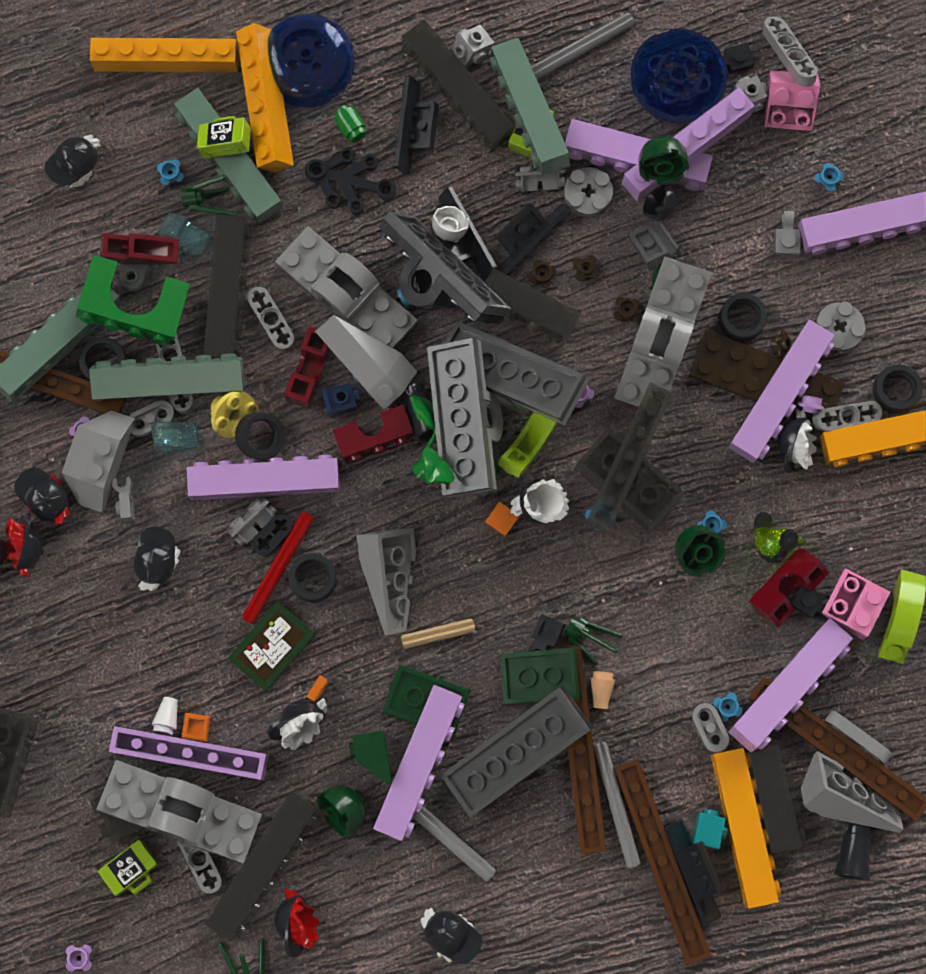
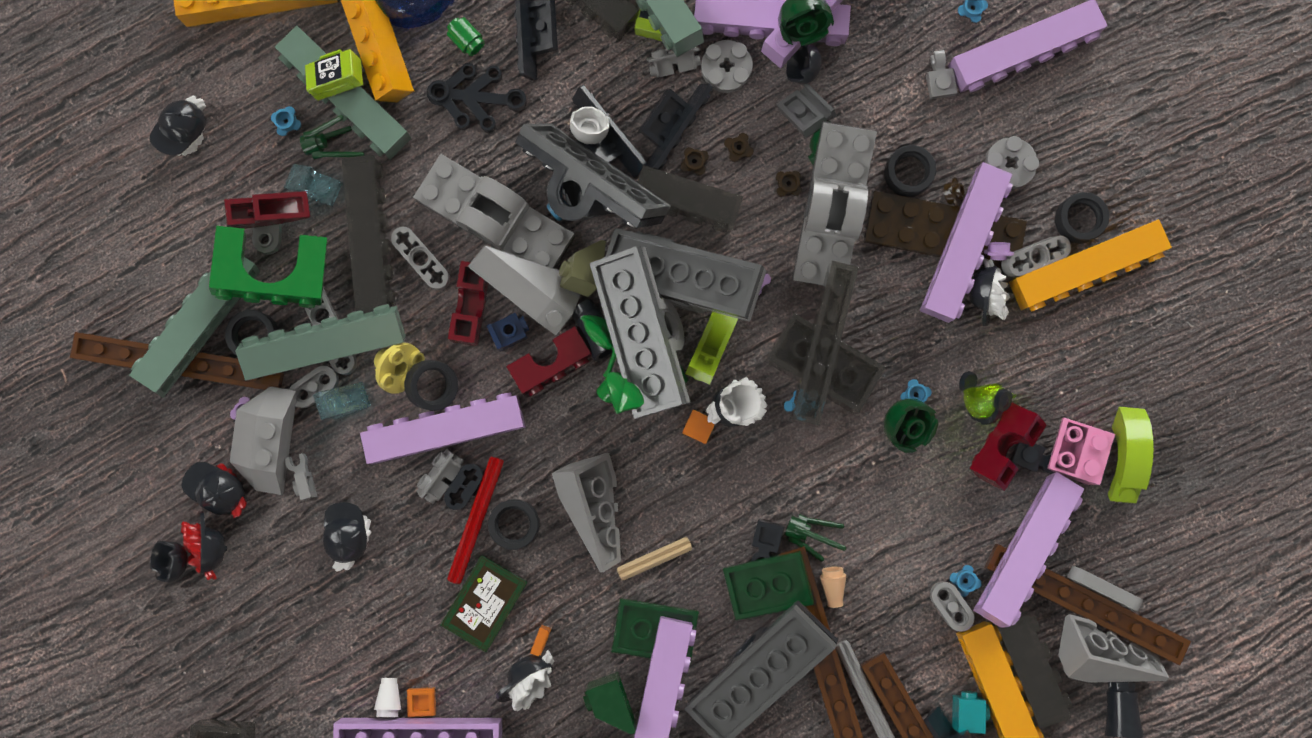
camera: 15 degrees left, 5 degrees up
(414, 354) = (576, 271): none -> olive slope

